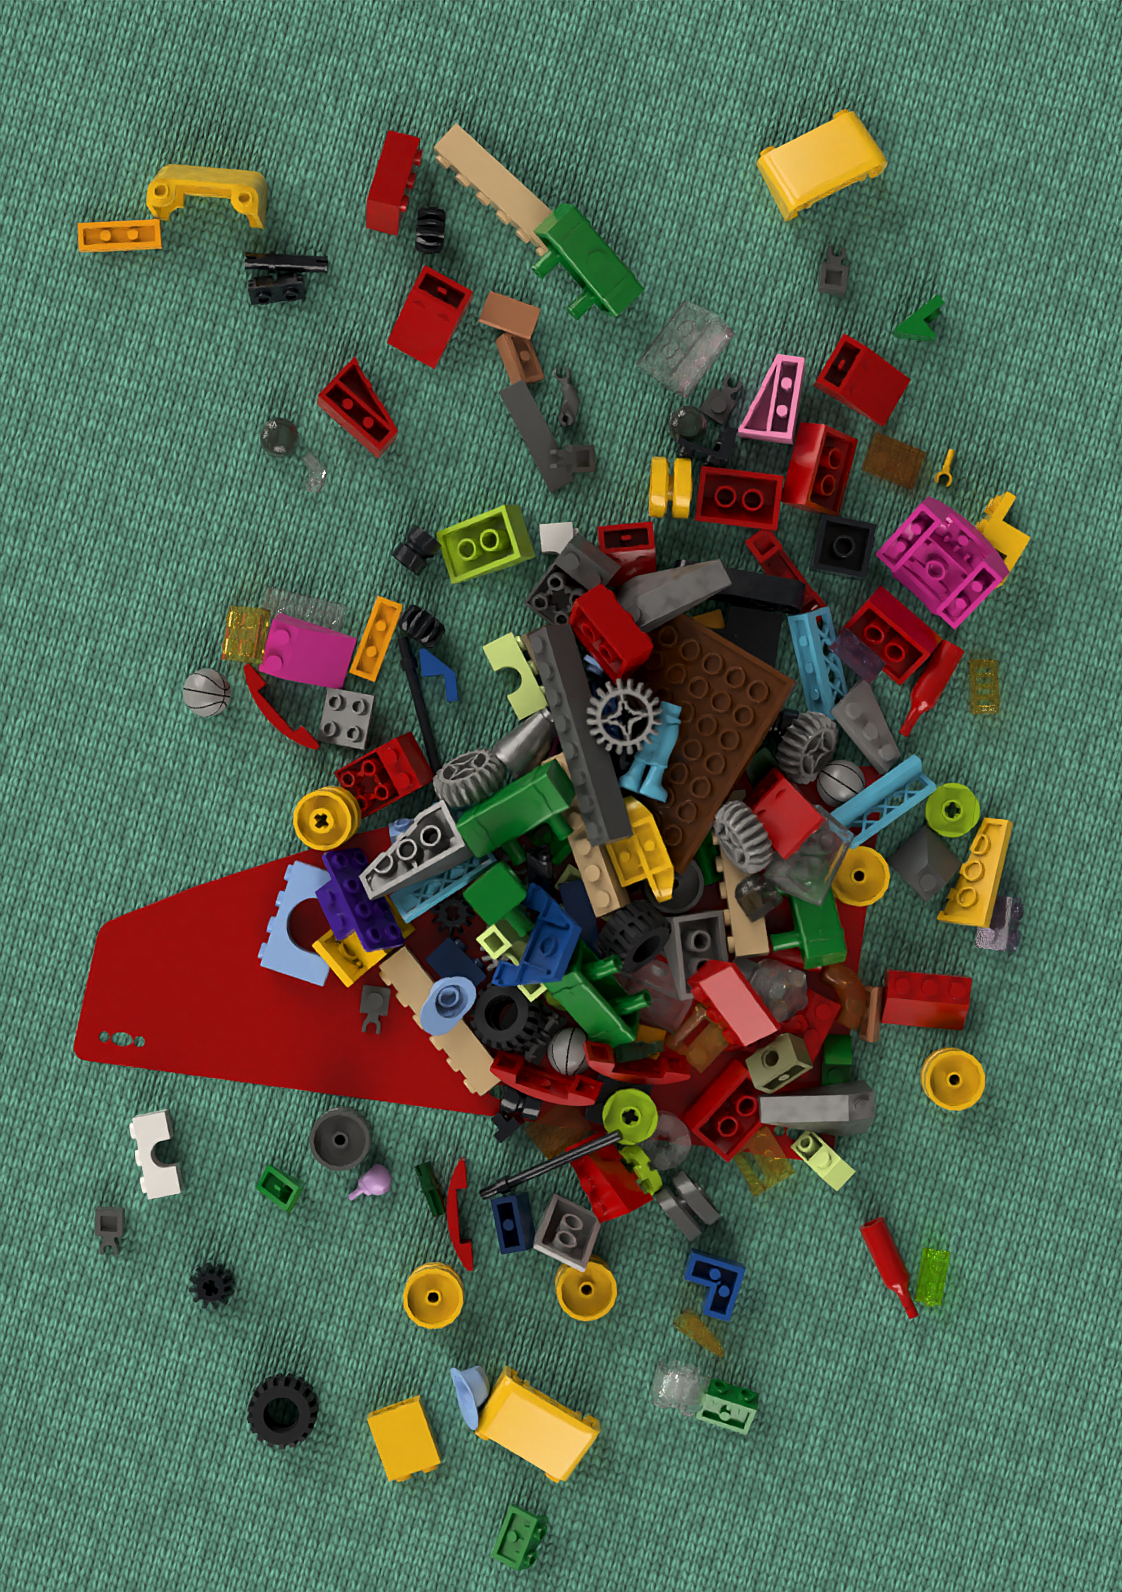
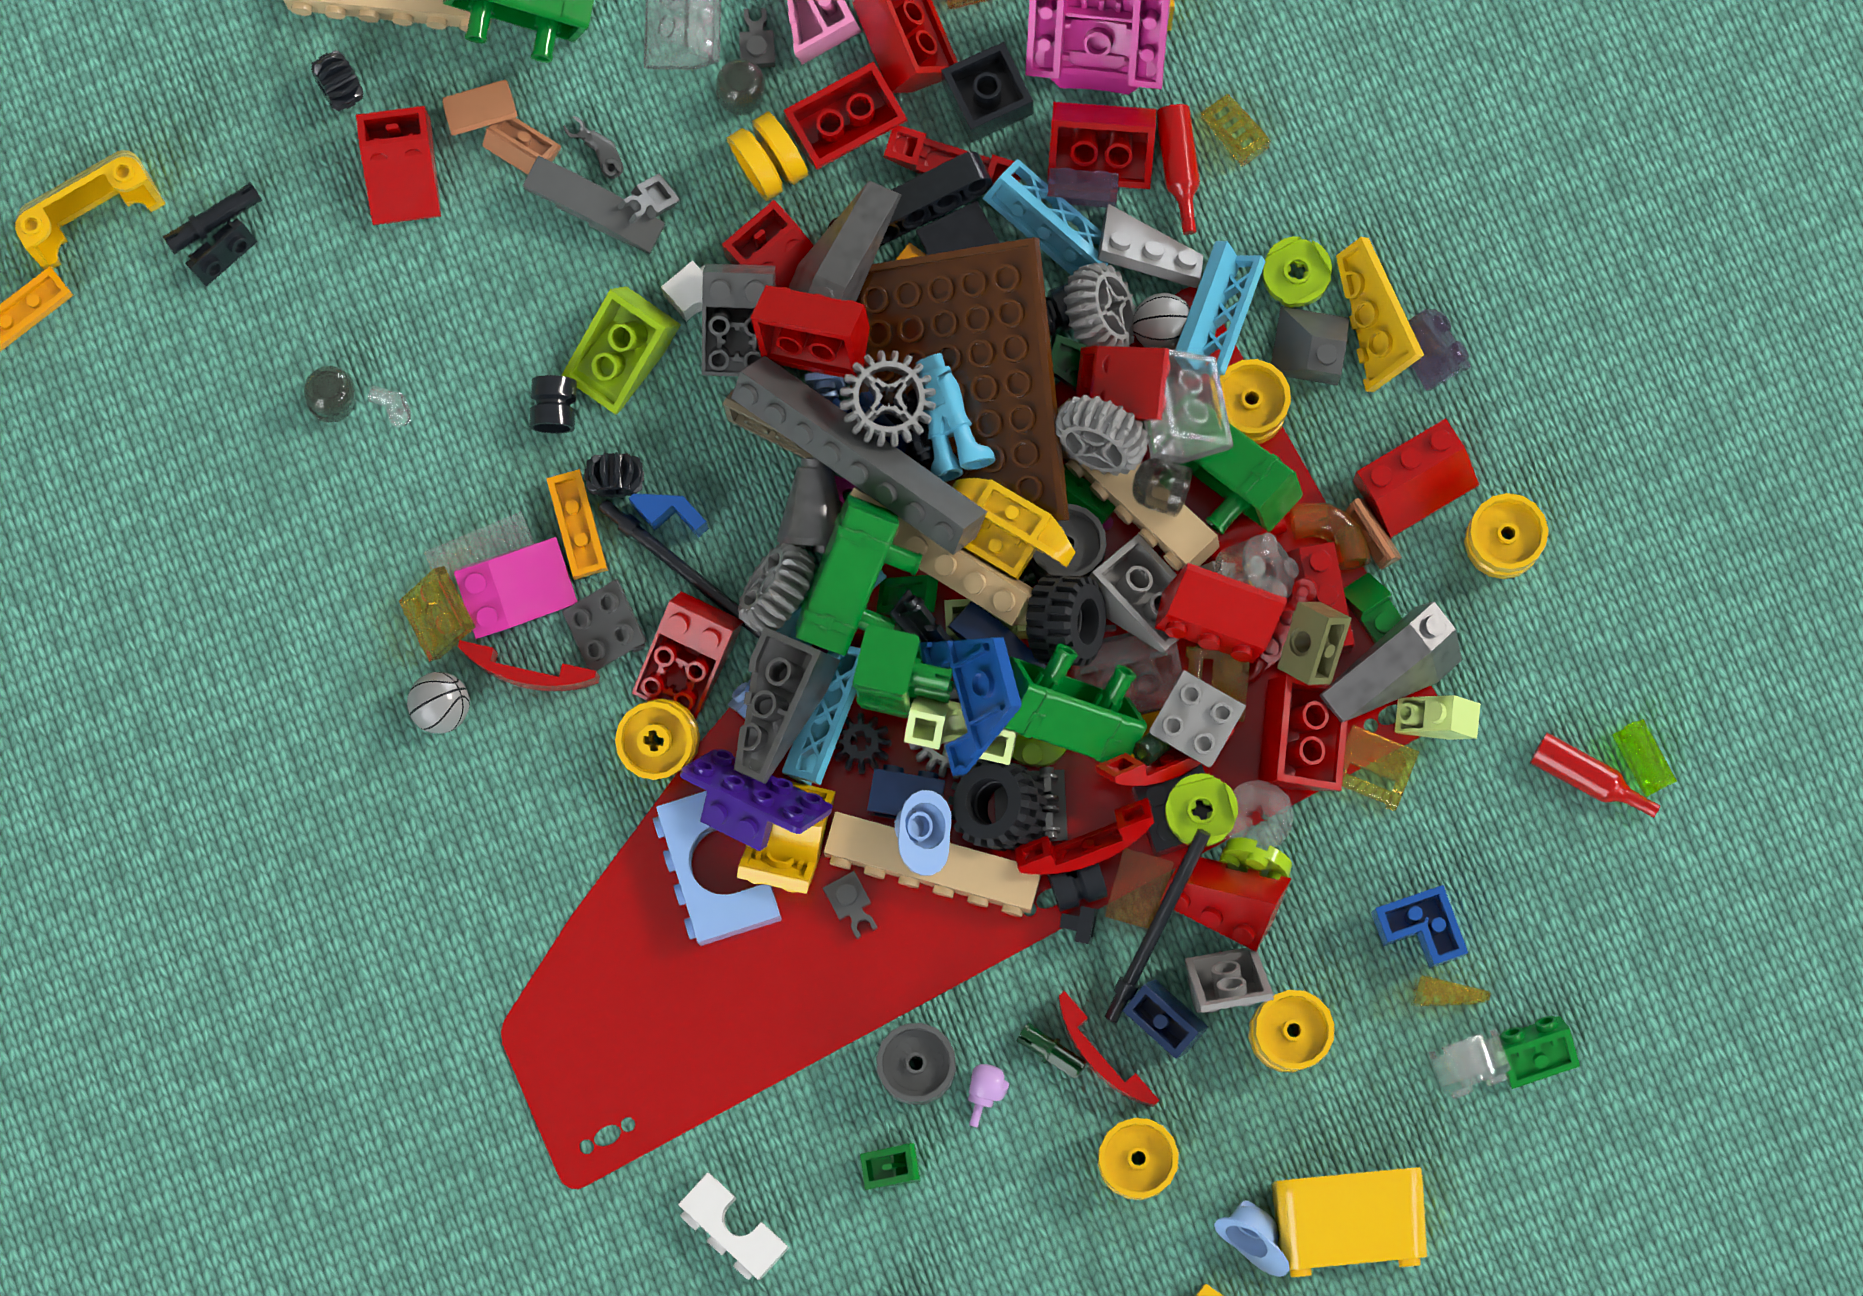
camera: 35 degrees left, 10 degrees down
(358, 410) = (390, 307): red wedge -> none
(392, 182) = (265, 63): red wedge -> none
(507, 653) = (724, 441): yellowish green arch -> none
(567, 1051) = (1090, 796): light grey piece -> none
(670, 1056) = (1196, 719): none -> light grey bracket
(687, 1205) = (1332, 864): dark grey wheel -> none
(713, 458) = (776, 97): black bracket -> none

